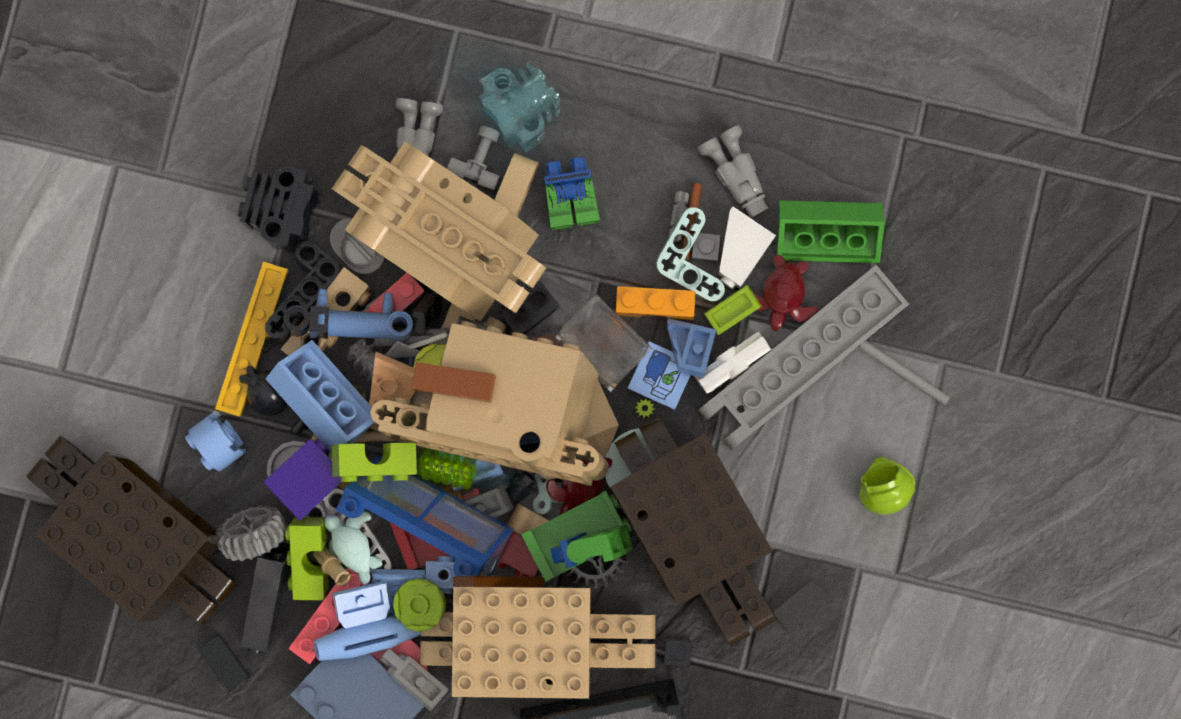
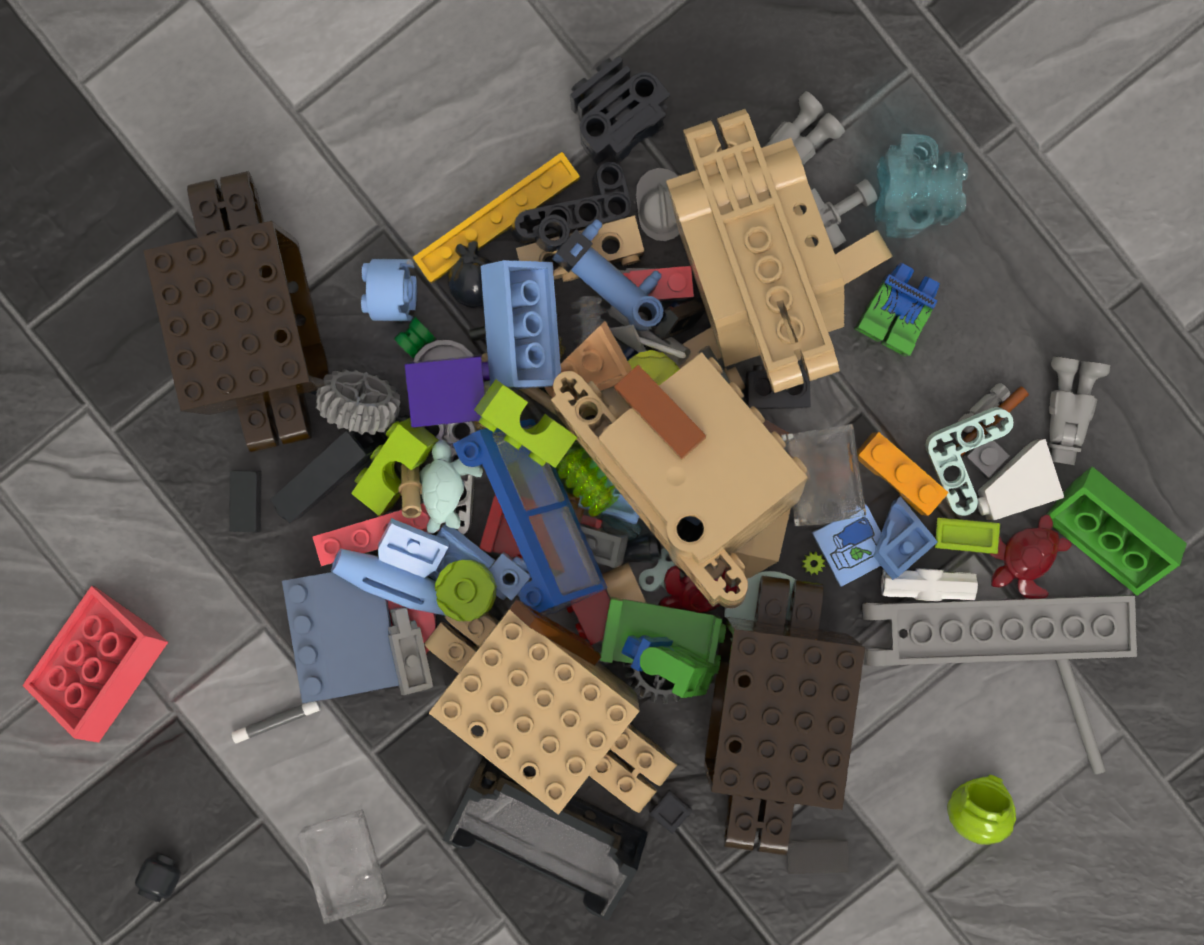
camera: 30 degrees right, 5 degrees up
(257, 462) = (414, 338): none -> green wheel

